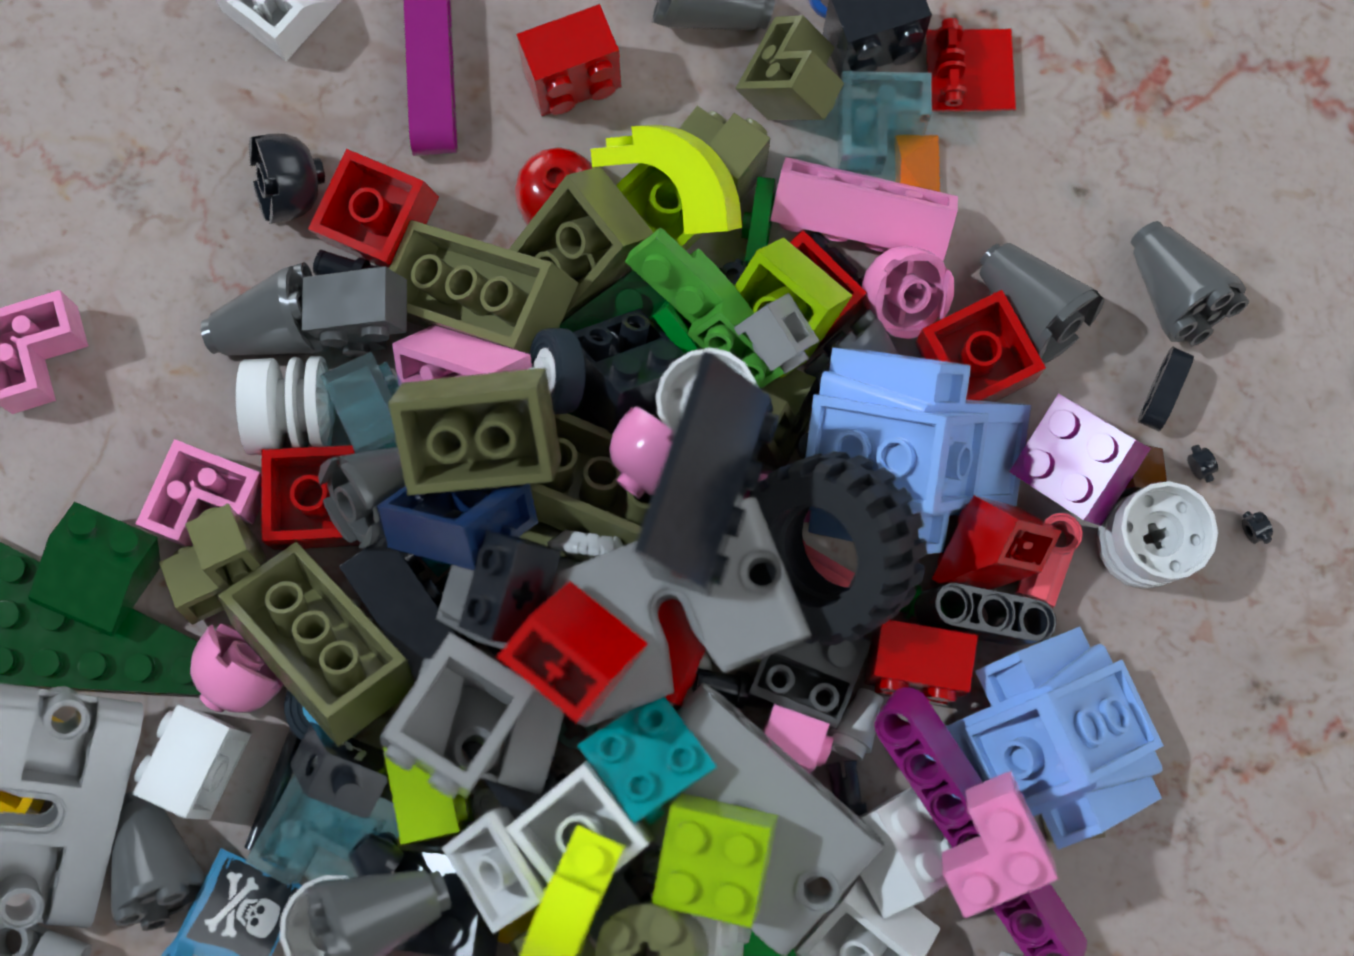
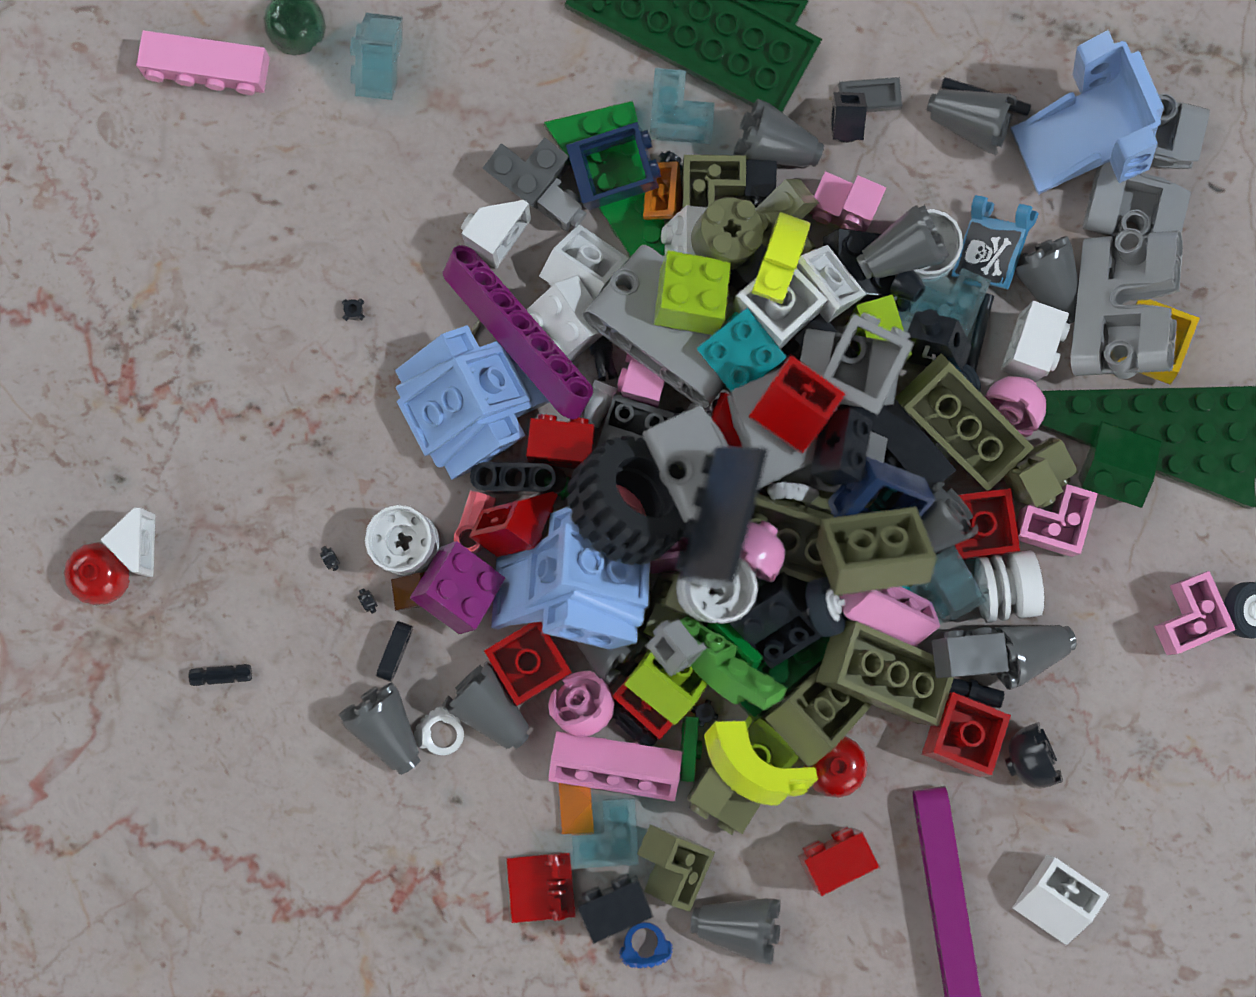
camera: 170 degrees right, 5 degrees up
(1006, 856) = (506, 314): bright pink brick -> none
(1124, 275) = (423, 731): none -> white piece
(1222, 900) = (353, 309): none -> black piece

